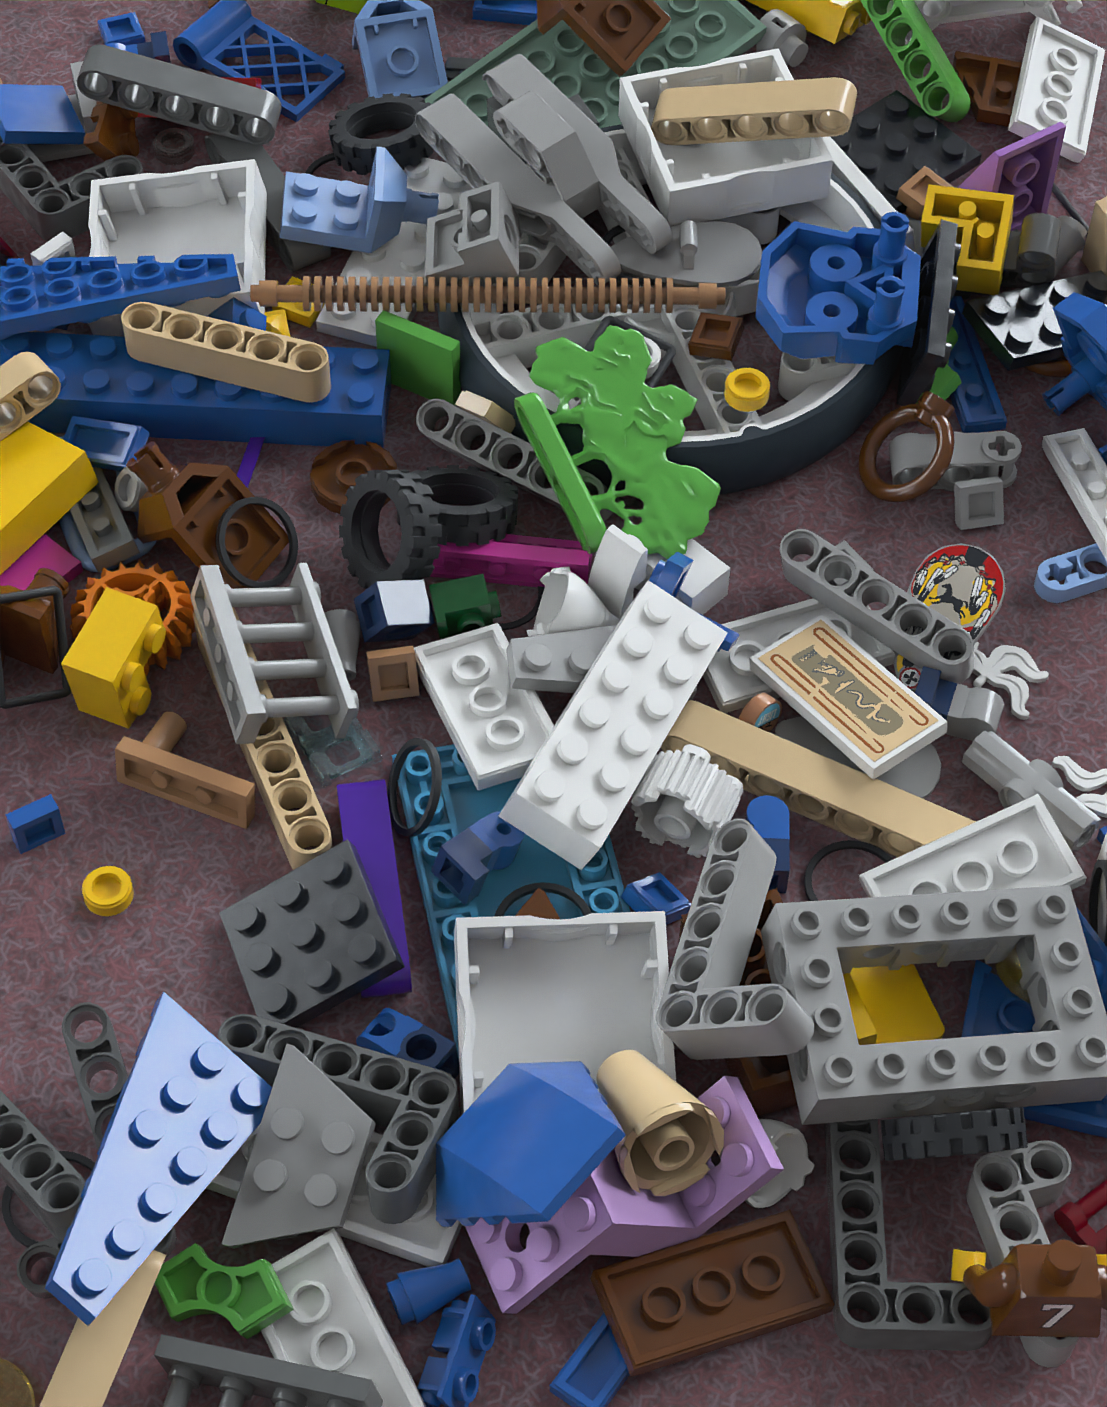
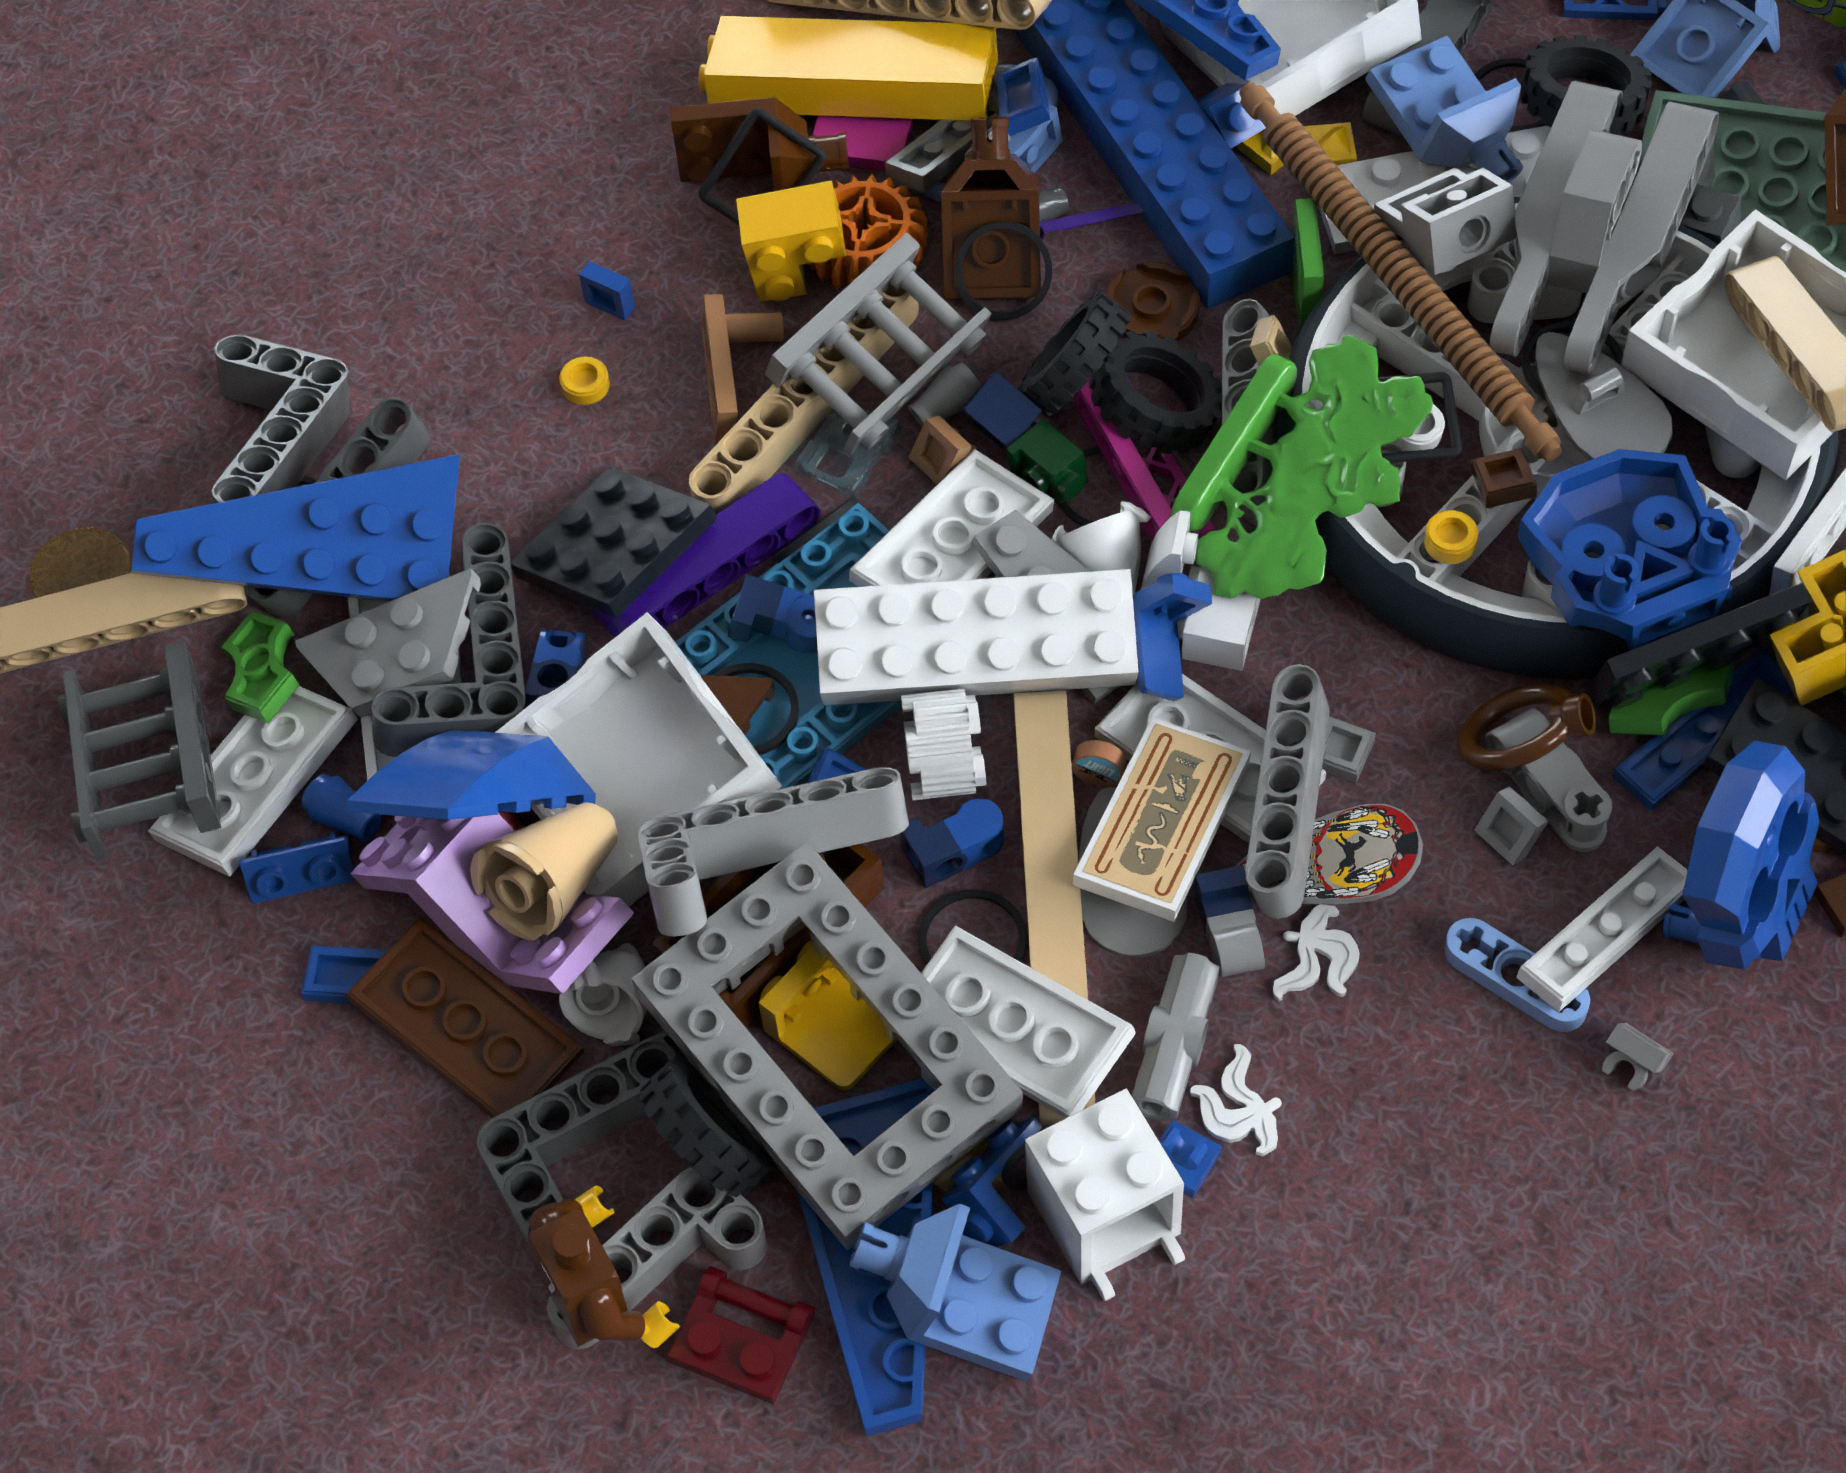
camera: 65 degrees right, 5 degrees up
(226, 351) = (1170, 115): tan beam -> none

